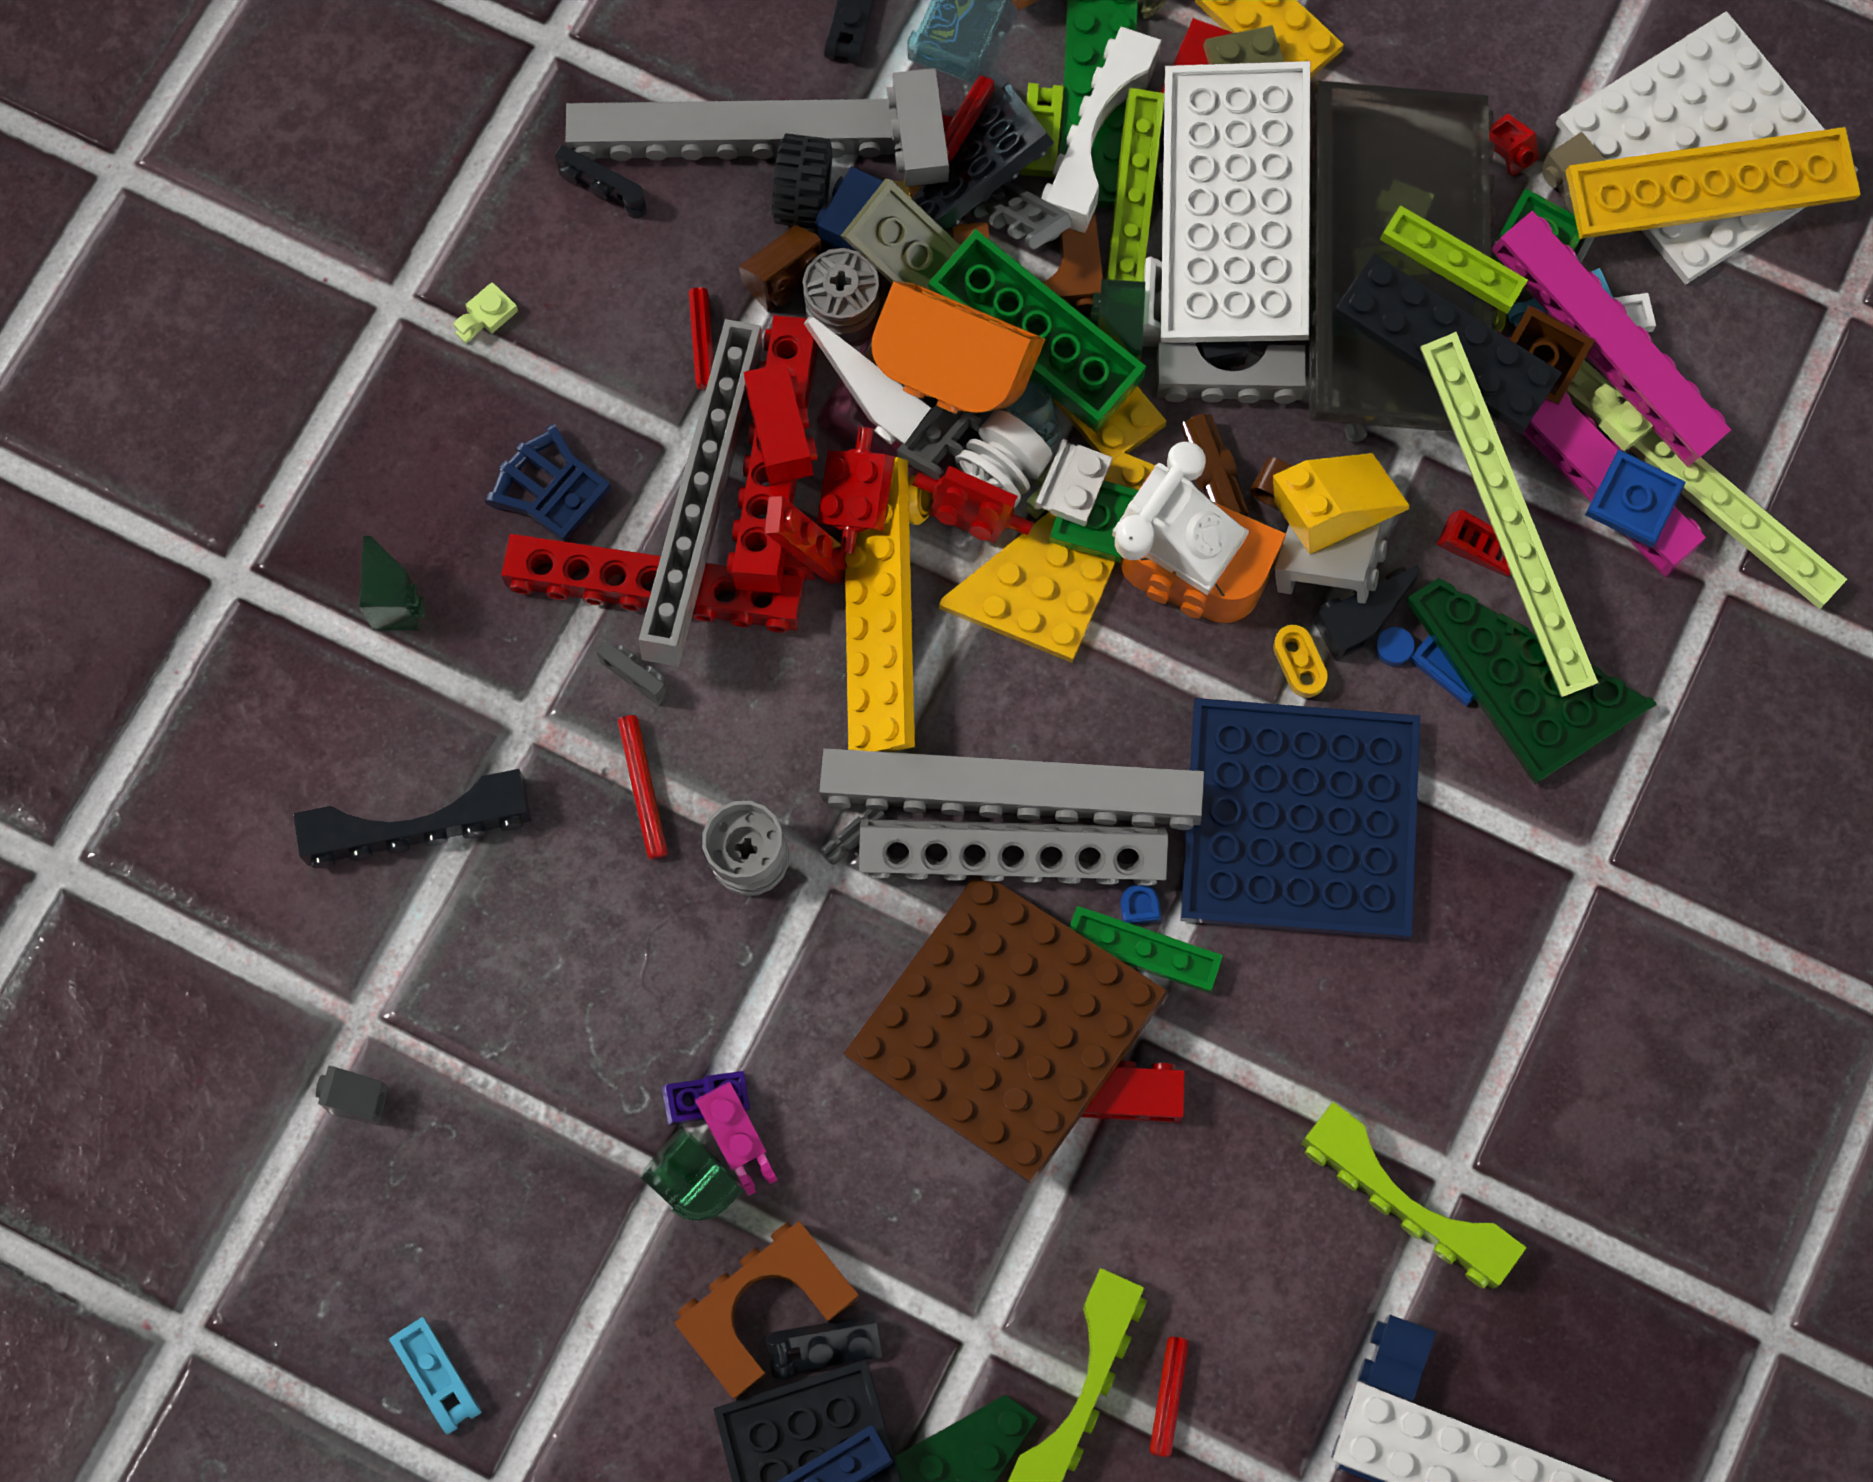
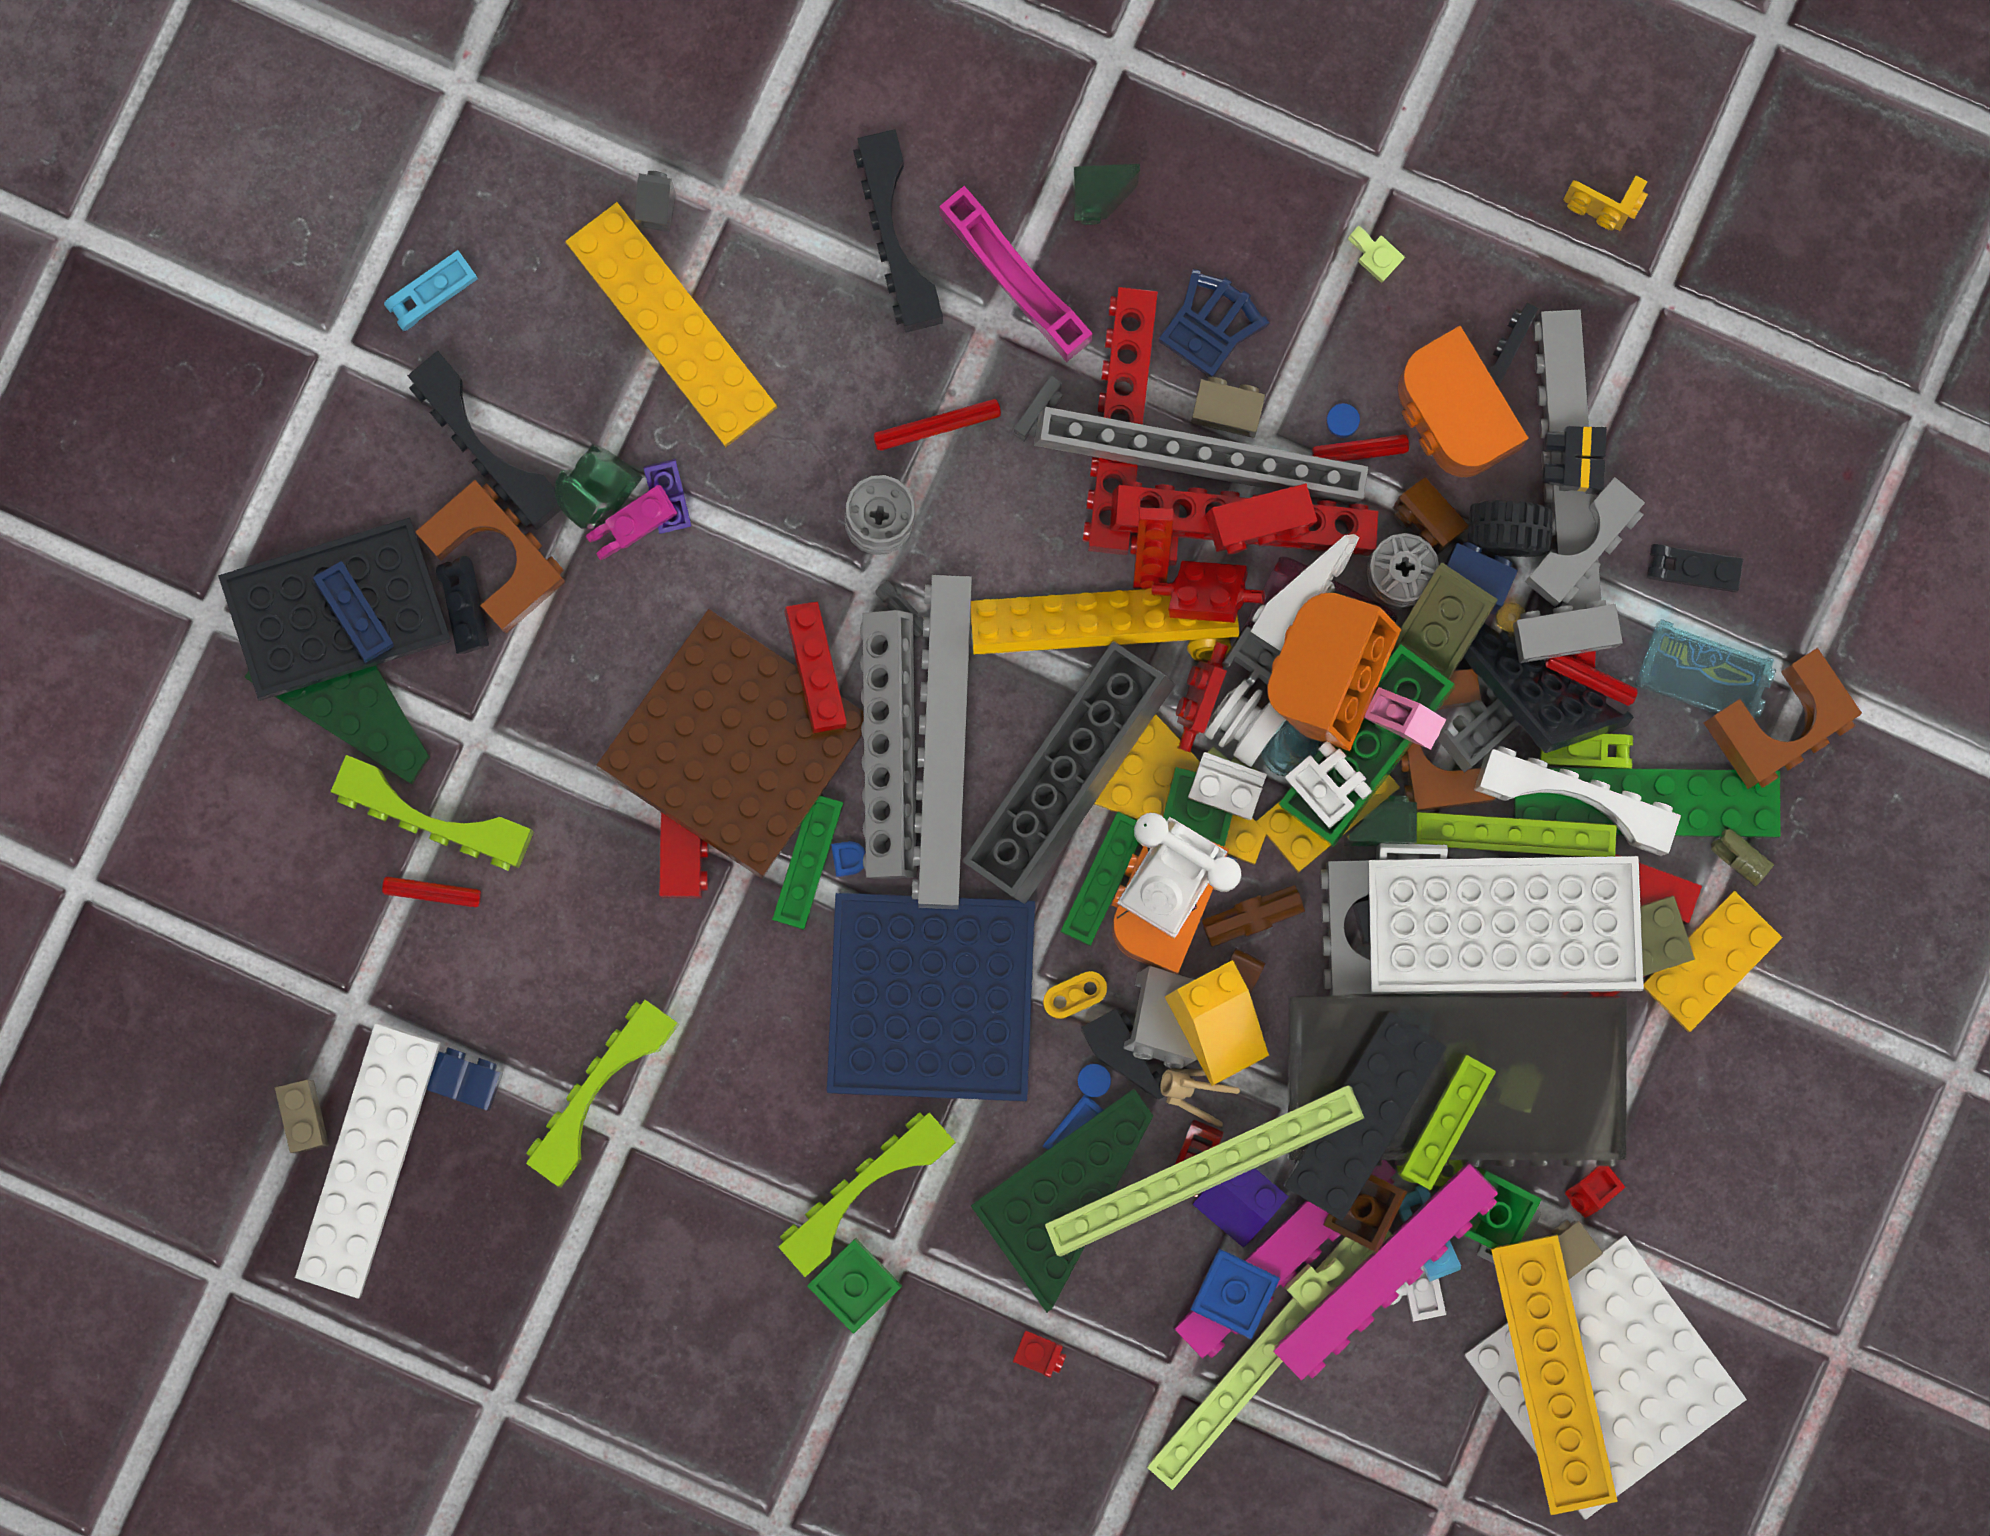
camera: 85 degrees right, 10 degrees up
(429, 724) = (1019, 281): none -> dark pink arch
(458, 71) = (1608, 212): none -> yellow bracket
(499, 1088) = (671, 324): none -> yellow plate
(559, 1363) = (444, 391): none -> black arch
(646, 470) = (1228, 407): none -> dark tan brick
(663, 229) = (1458, 407): none -> orange brick
(668, 355) = (1343, 420): none -> blue tile
(731, 107) = (1581, 459): none -> black hips
(792, 77) = (1611, 511): none -> light grey arch
(918, 930) = (815, 667): none -> red plate
(1012, 276) = (1405, 718): none -> bright pink slope
(1053, 648) = (1069, 772): none -> dark grey brick
(1086, 372) = (1319, 789): none -> white plate
(1170, 625) = (1102, 880): none -> green plate
(1405, 548) = (1178, 1085): none -> tan plant
(1542, 486) = (1241, 1205): none -> dark purple slope
(1578, 956) = (814, 1239): none -> lime arch
(1630, 915) = (854, 1286): none -> green plate
(1701, 715) = (1039, 1354): none -> red bracket

